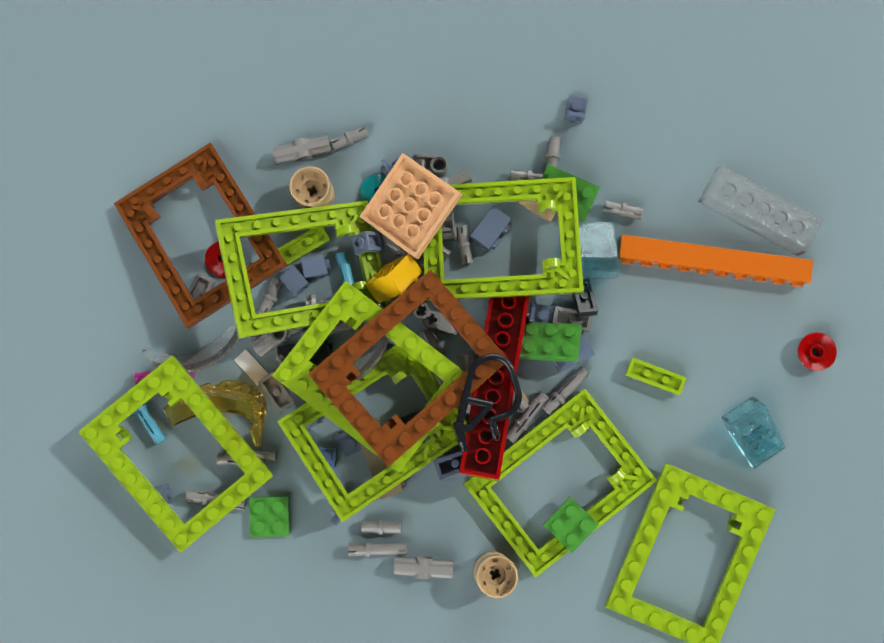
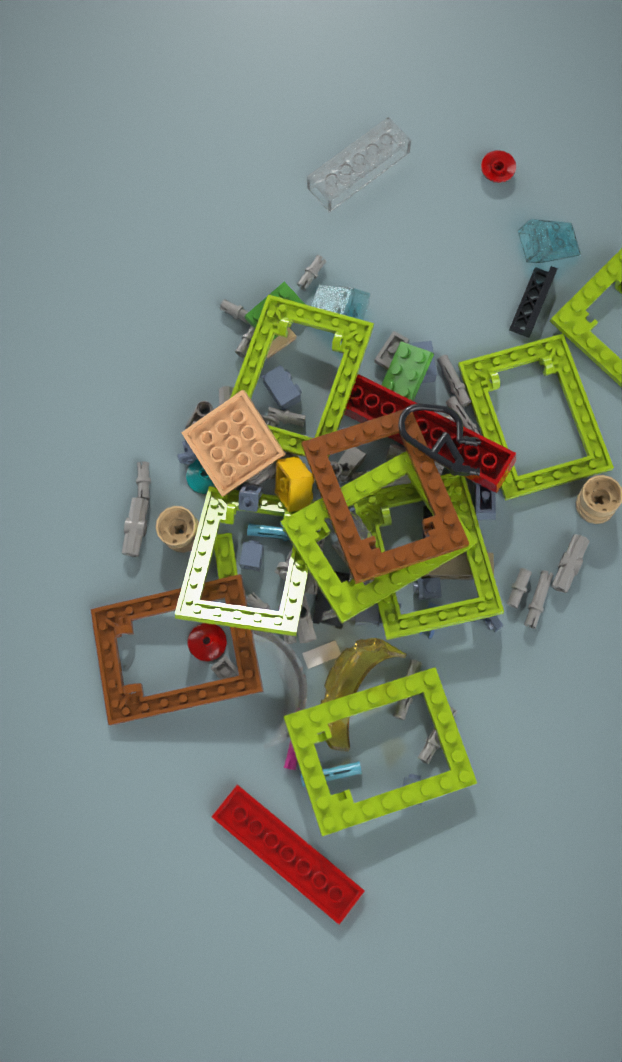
camera: 65 degrees left, 10 degrees down
(62, 406) = (288, 854): none -> red plate
(269, 516) = (471, 689): bright green plate -> none
(276, 393) = (347, 637): light grey plate -> none
(294, 280) = (256, 580): sand blue brick -> none
(540, 313) = (376, 373): sand blue bracket -> none
(570, 524) = (576, 418): bright green plate -> none
(575, 110) = (205, 278): sand blue bracket -> none
(585, 301) = (383, 332): black plate -> none
(655, 376) = (470, 301): lime plate -> none
(675, 445) = (539, 301): none -> black fence
(714, 260) = (387, 215): orange brick -> none

